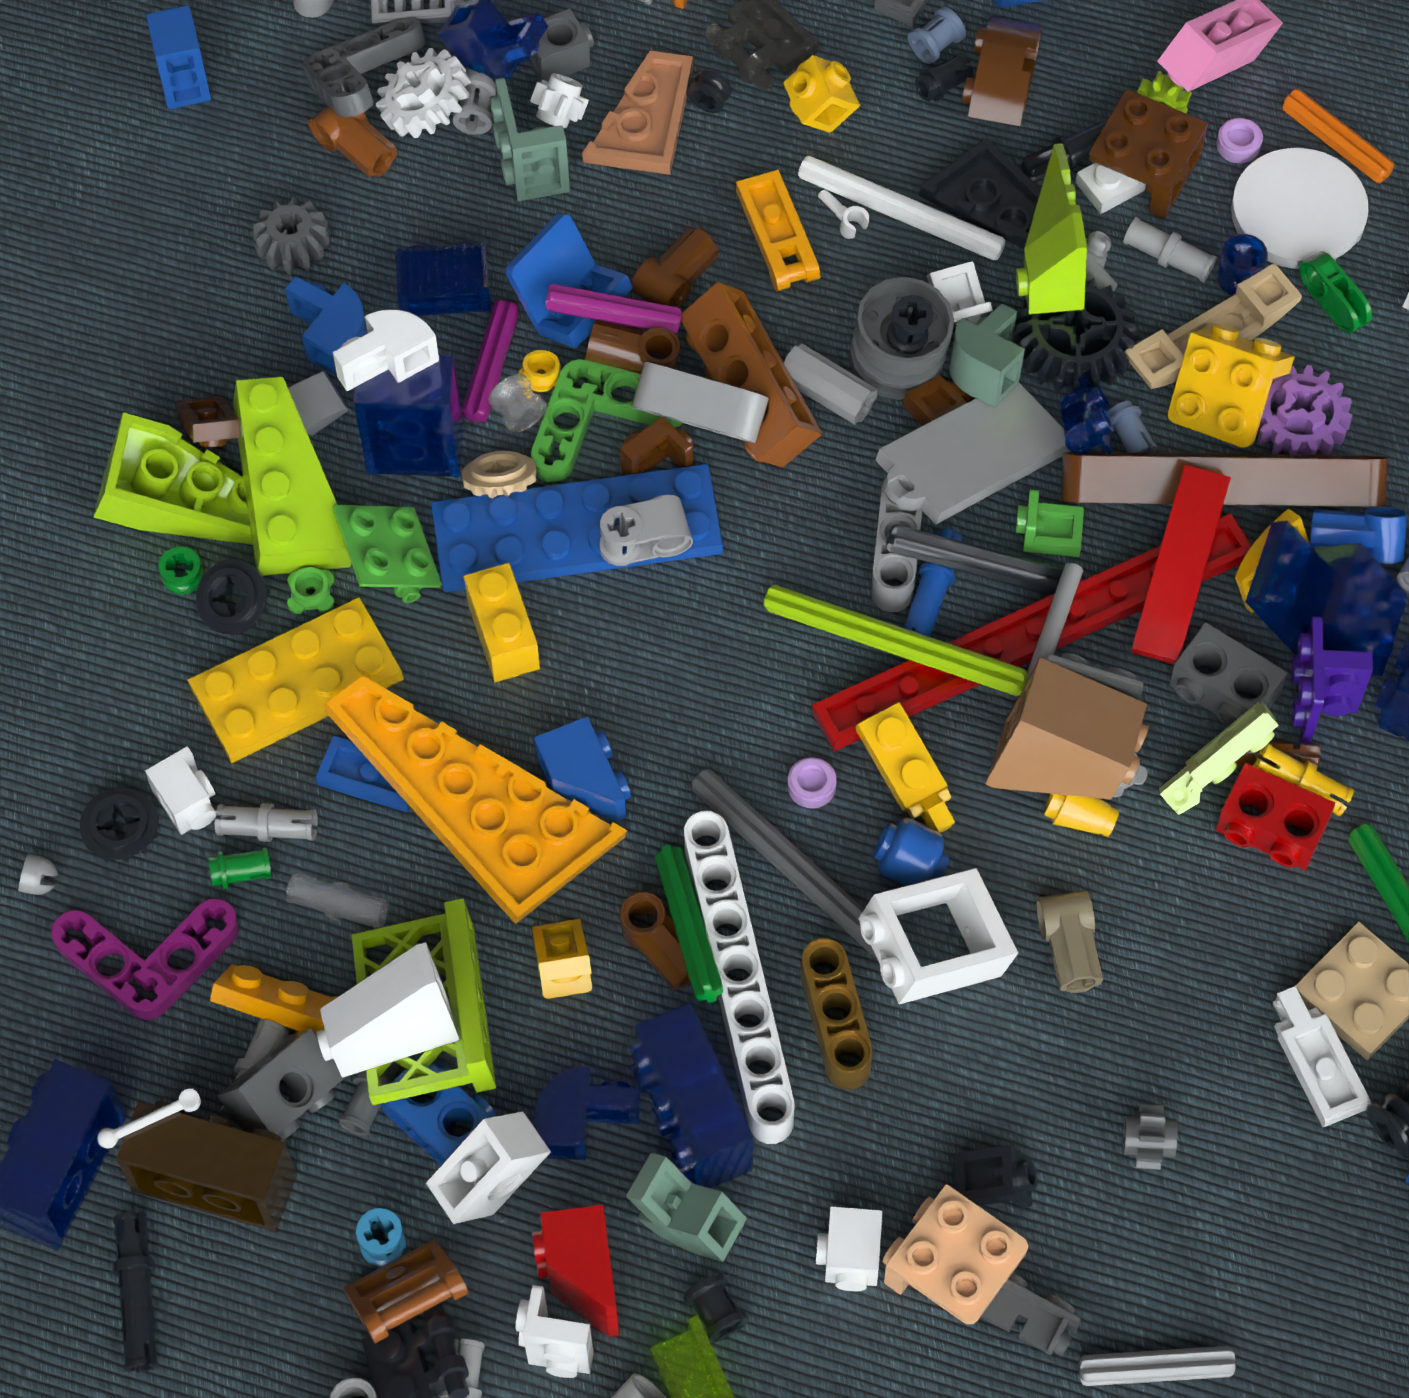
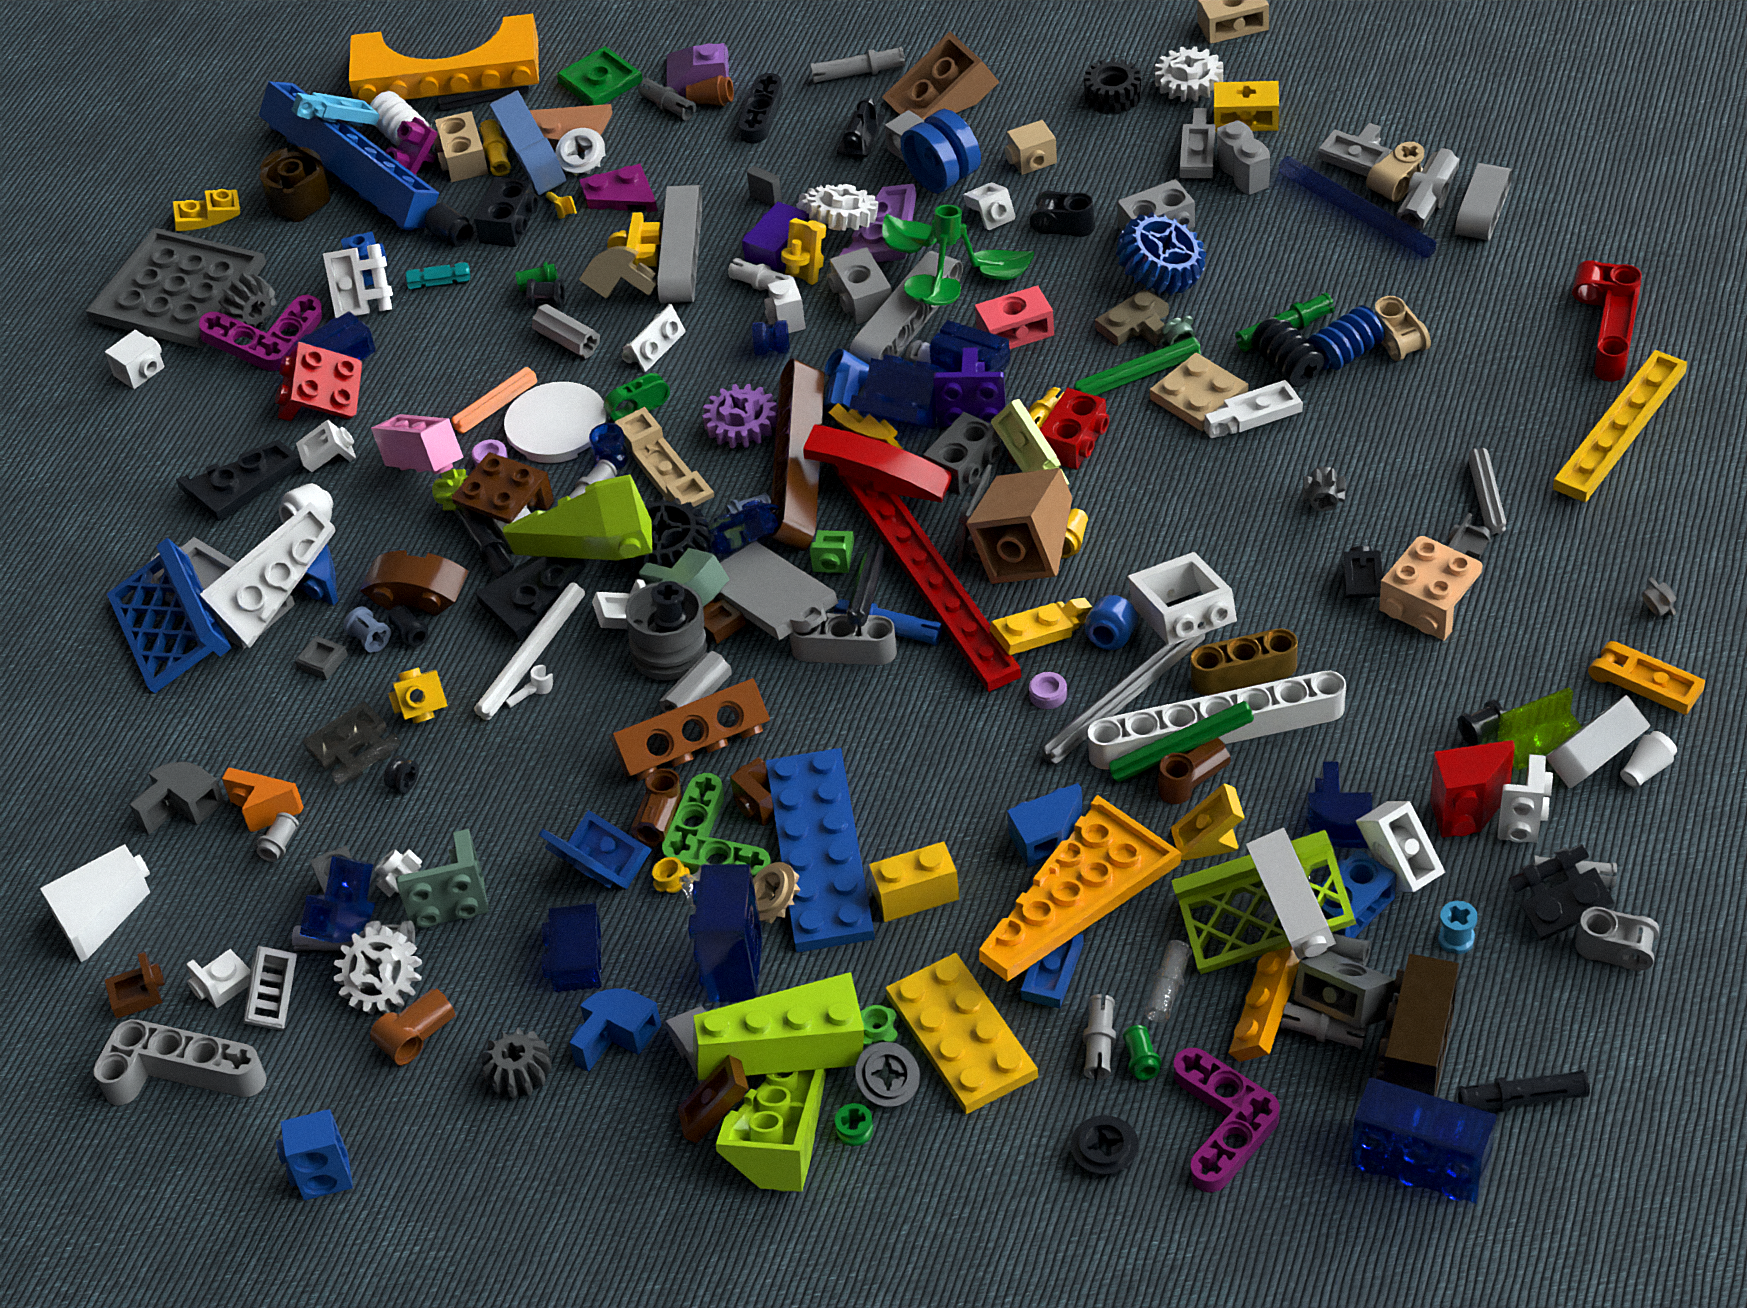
camera: 85 degrees left, 15 degrees down
(33, 875) = (1163, 1206): light grey hinge -> none
(182, 791) = (1075, 1096): white brick -> none
(188, 1100) = (1382, 1018): white hinge -> none
(338, 69) = (339, 1044): dark grey beam -> none
(388, 548) = (860, 951): bright green hinge -> none
(393, 342) = (699, 896): white brick -> none
(405, 1289) = (1496, 917): dark orange plate -> none
(490, 361) = (645, 912): magenta axle -> none
(611, 308) = (625, 812): magenta axle -> none
(647, 530) = (839, 782): light grey piece -> none
(648, 118) = (417, 814): nougat wing -> none
(671, 276) = (578, 787): reddish brown piece -> none
(685, 1212) = (1413, 738): sand green brick -> none
(691, 1098) = (1328, 724): clear blue brick -> none
(700, 402) = (723, 746): light grey beam -> none
(777, 229) = (545, 725): light orange plate -> none
(851, 1248) = (1427, 646): white brick -> none
(896, 640) = (933, 632): lime axle -> none
(1057, 613) = (924, 541): light grey bar -> none
(1069, 927) = (1162, 537): dark tan piece -> none
(1226, 383) = (718, 446): yellow bracket -> none

